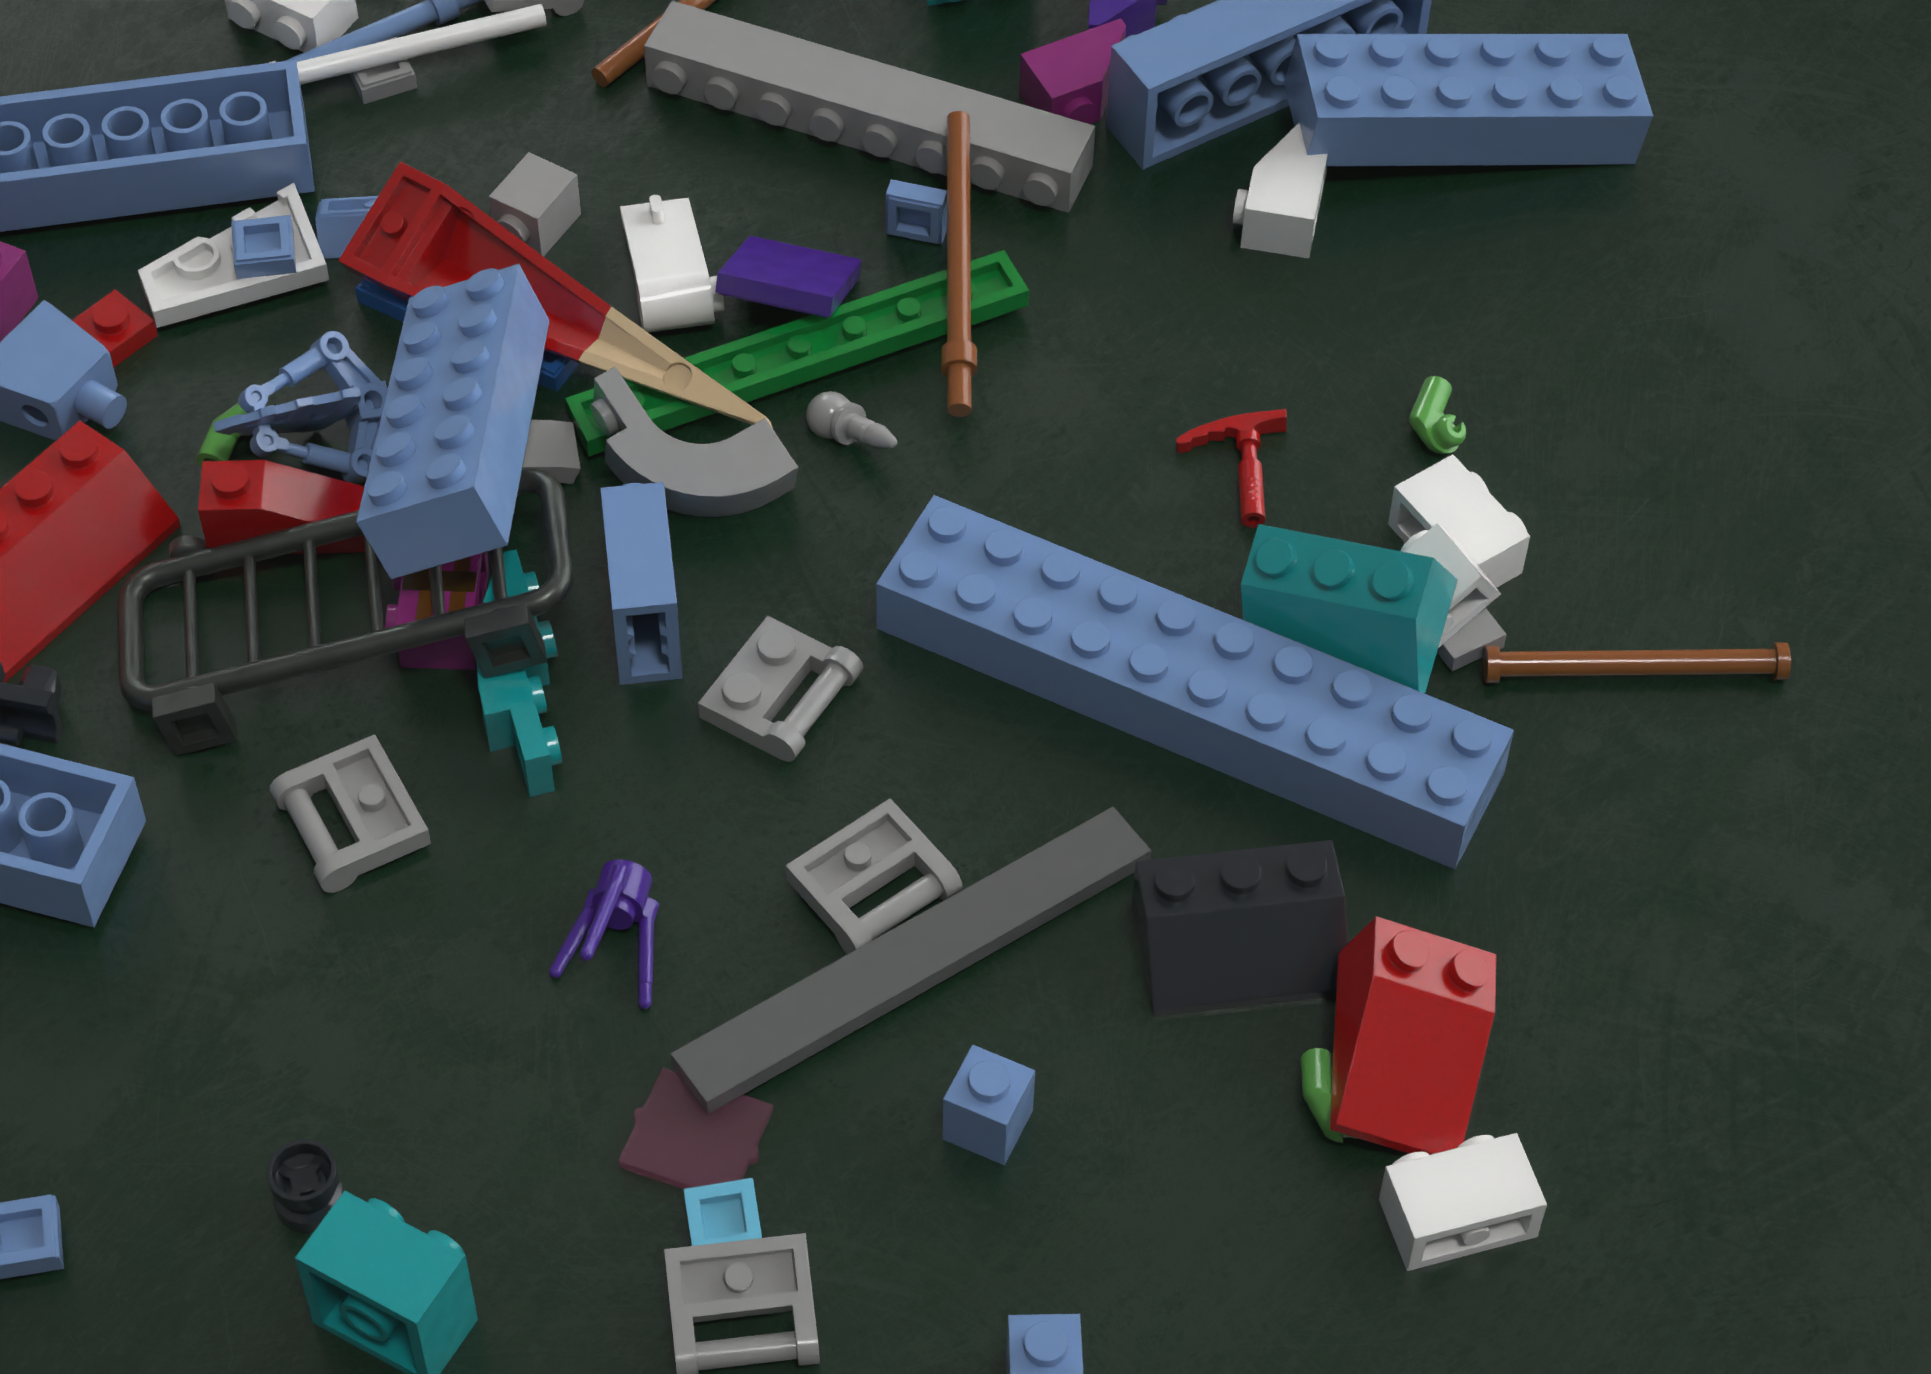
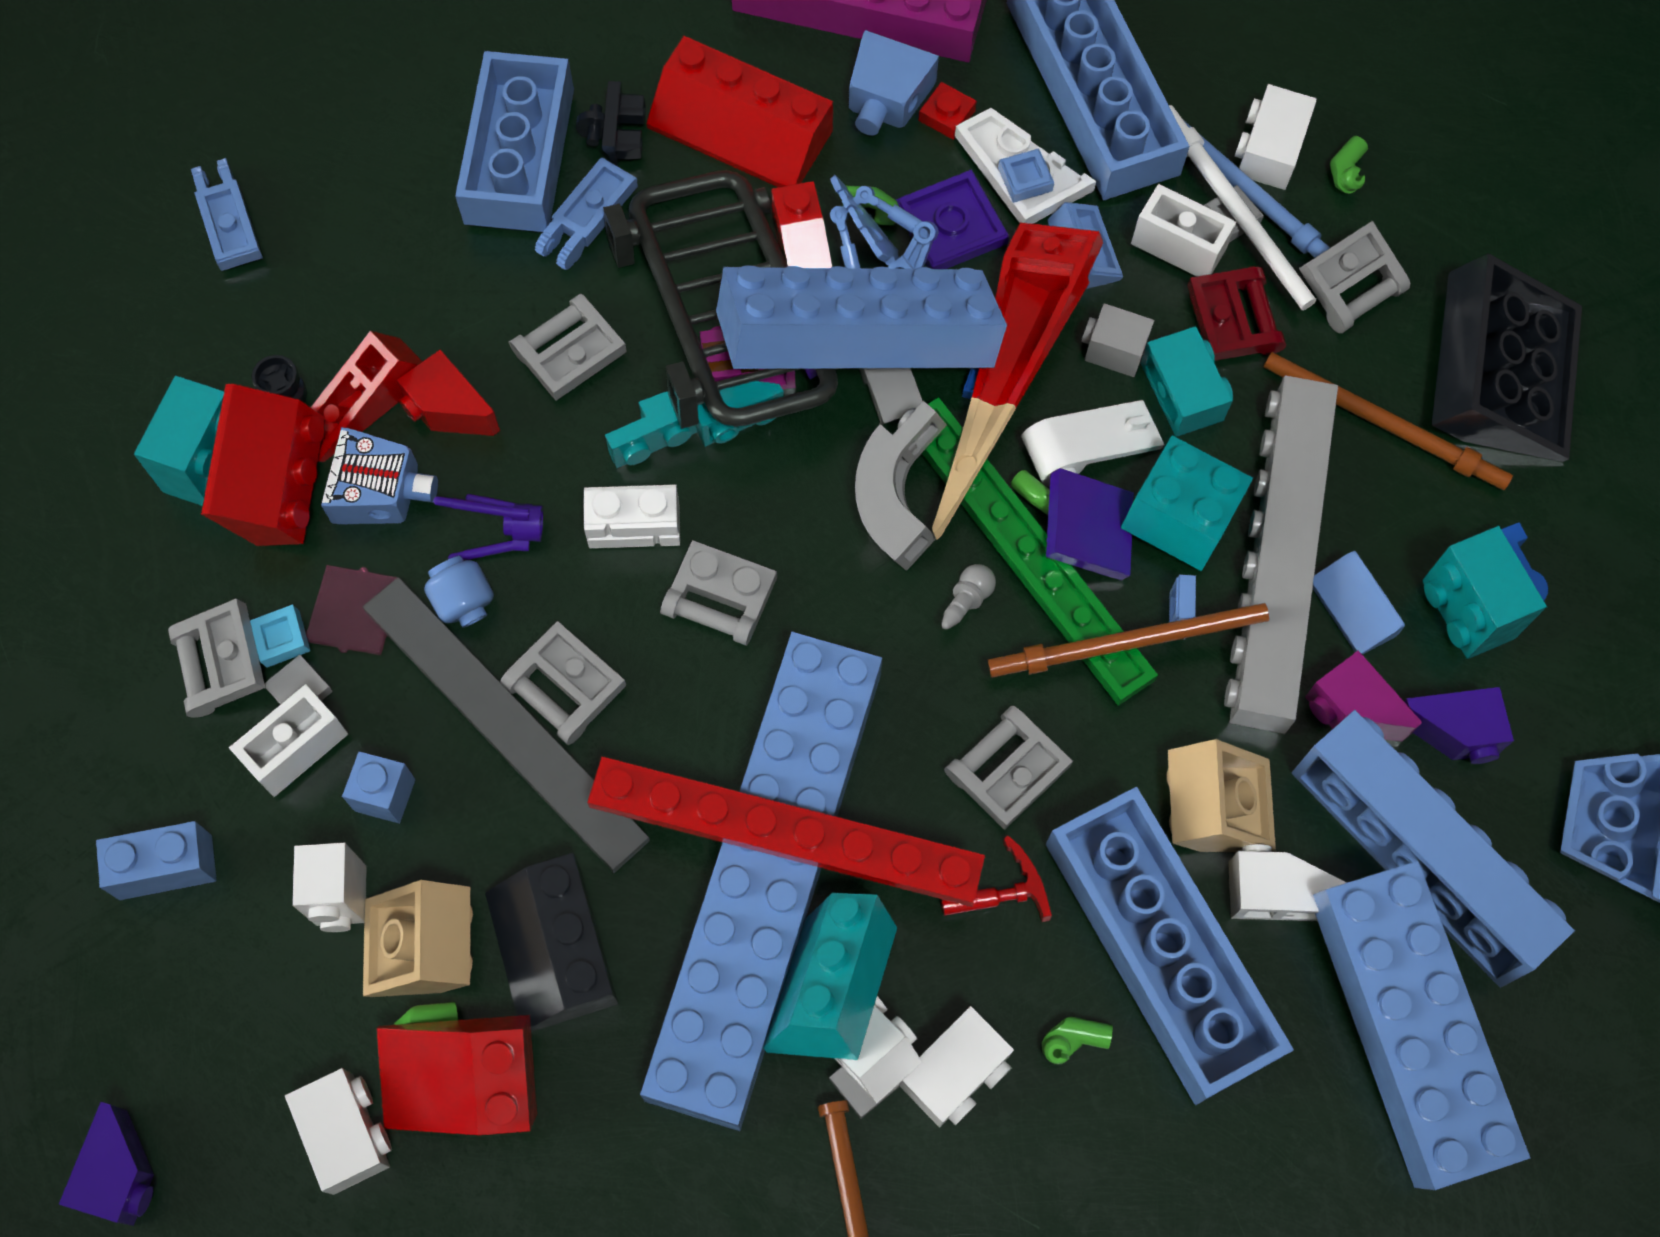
camera: 80 degrees right, 15 degrees up
(113, 739) = (582, 212): none -> medium blue hinge
(276, 334) = (963, 220): none -> dark purple tile
(359, 1083) = (363, 388): none -> red slope
(396, 965) = (445, 399): none -> red slope
(406, 105) = (1182, 232): none -> white brick
(463, 1182) = (263, 466): none -> red slope
(502, 1074) = (373, 481): none -> torso
(529, 93) = (1223, 315): none -> dark red plate
(616, 150) = (1187, 381): none -> teal brick
(642, 583) = (770, 475): medium blue brick -> none
(649, 759) = (632, 516): none -> white brick
(710, 981) = (458, 591): none -> medium blue head
(737, 321) = (1031, 490): none -> bright green arm
(788, 174) = (1186, 503): none -> teal brick
(809, 1207) = (293, 677): none -> light grey tile
(900, 1203) = (289, 740): none -> white brick
(956, 52) = (1357, 603): none -> medium blue slope
(1102, 407) = (1020, 777): none -> light grey plate
(1132, 1159) = (329, 885): none -> white brick
(1150, 622) = (787, 831): none -> red plate
(1169, 229) = (1219, 797): none -> tan slope
(1214, 1088) = (417, 940): none -> tan slope
(1342, 299) = (1167, 946): none -> medium blue brick

